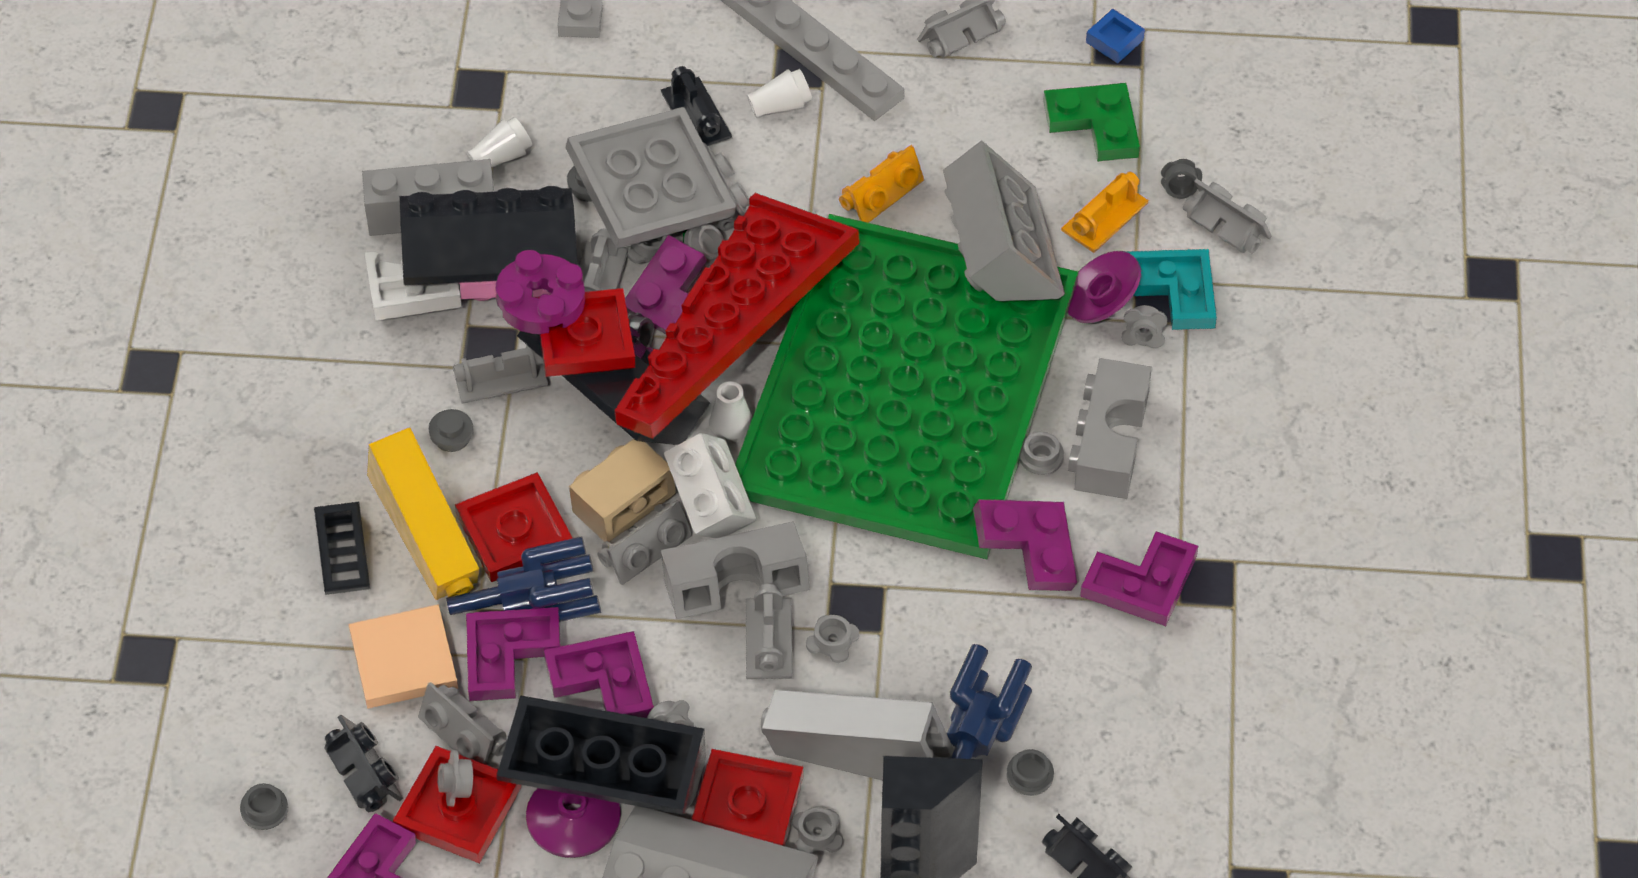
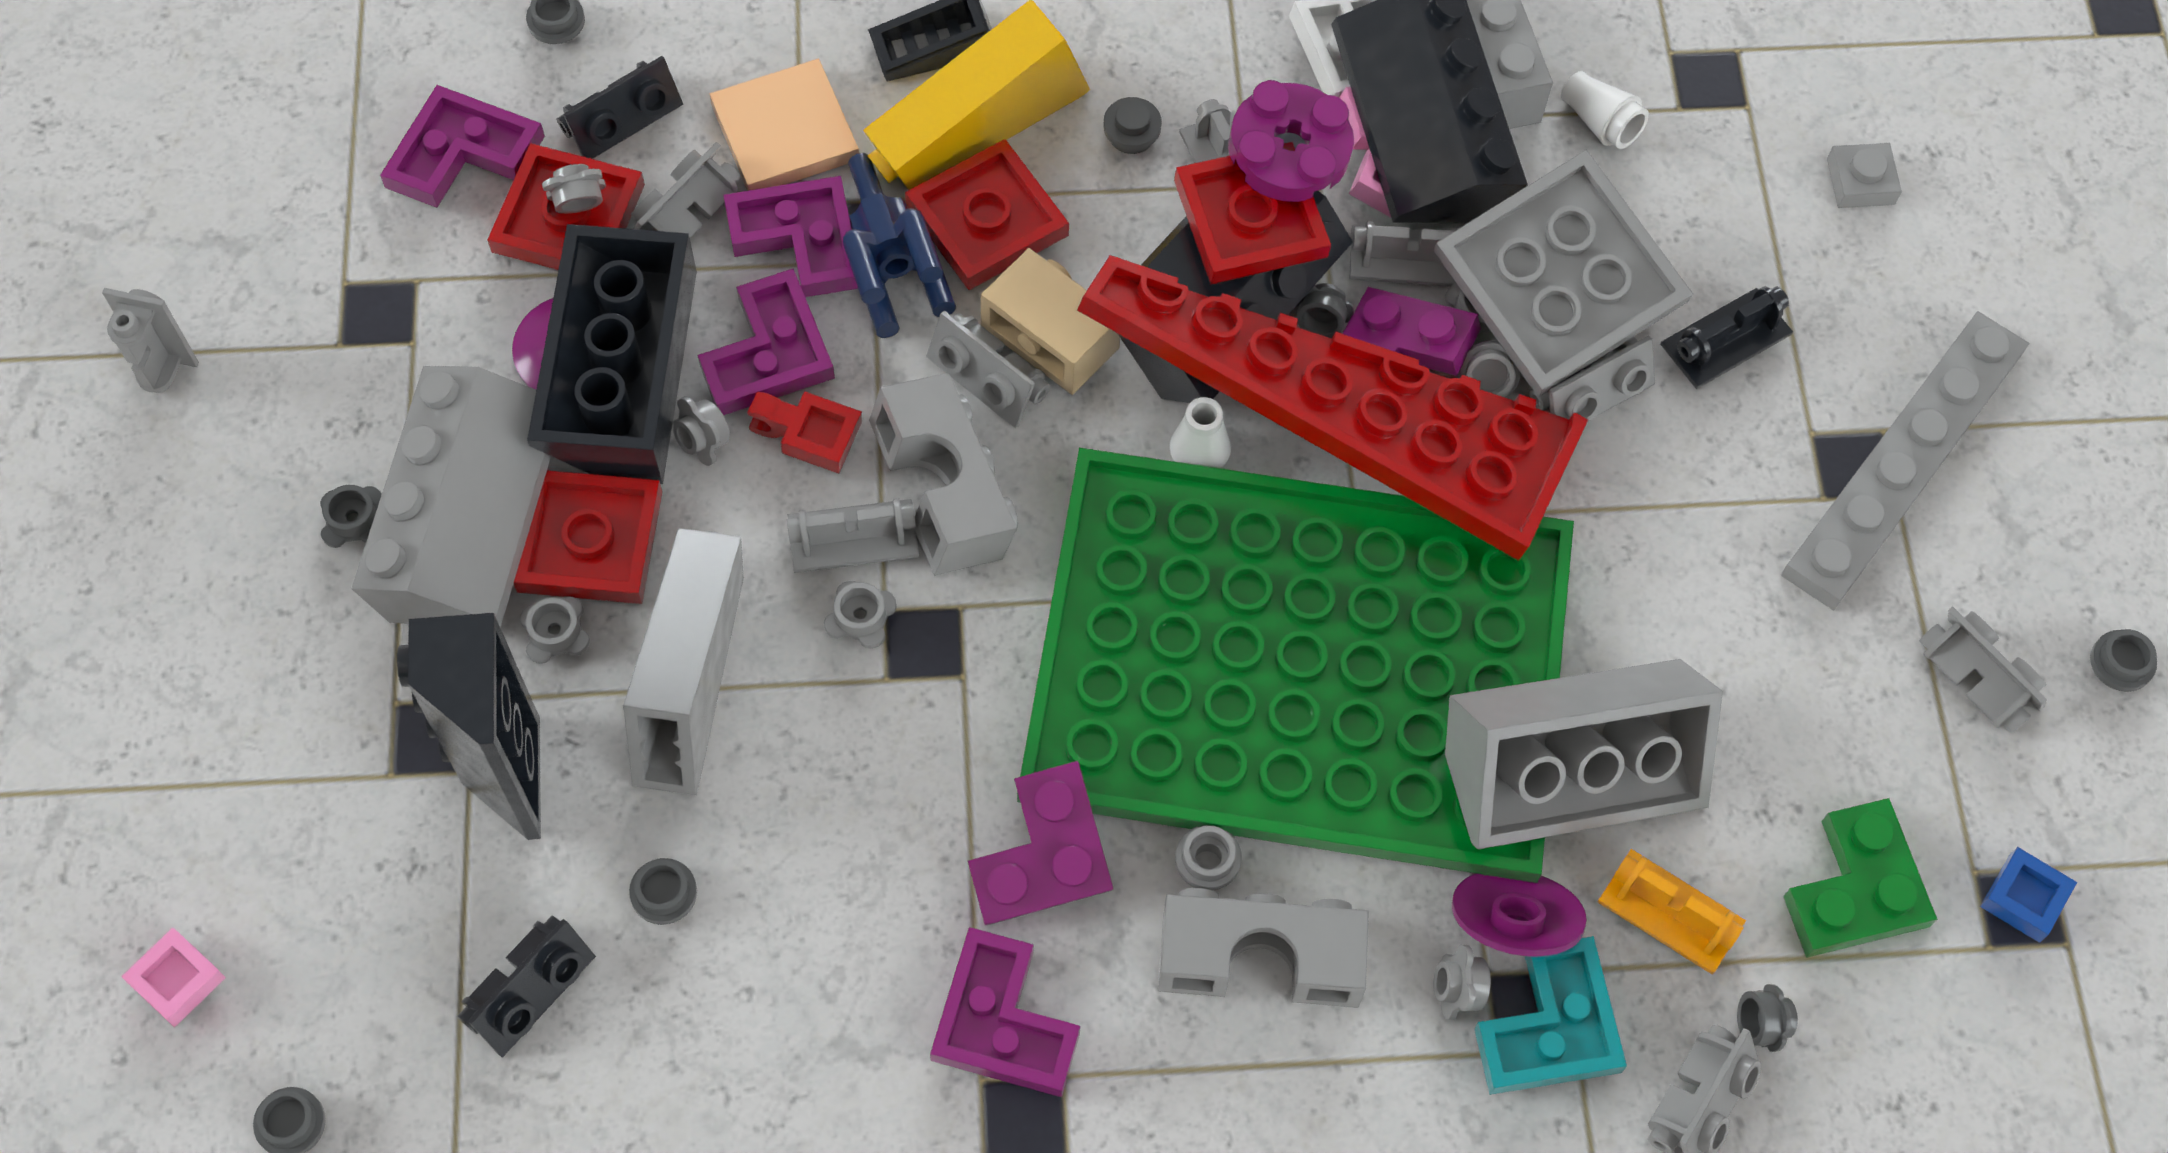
camera: 80 degrees right, 10 degrees up
(679, 651) = (812, 431): none -> red plate
(709, 486) = (1064, 428): white brick -> none
(781, 94) = (1787, 441): white cone -> none
(884, 186) = (1639, 587): light orange hinge -> none
(980, 715) = (736, 809): dark blue plant -> none

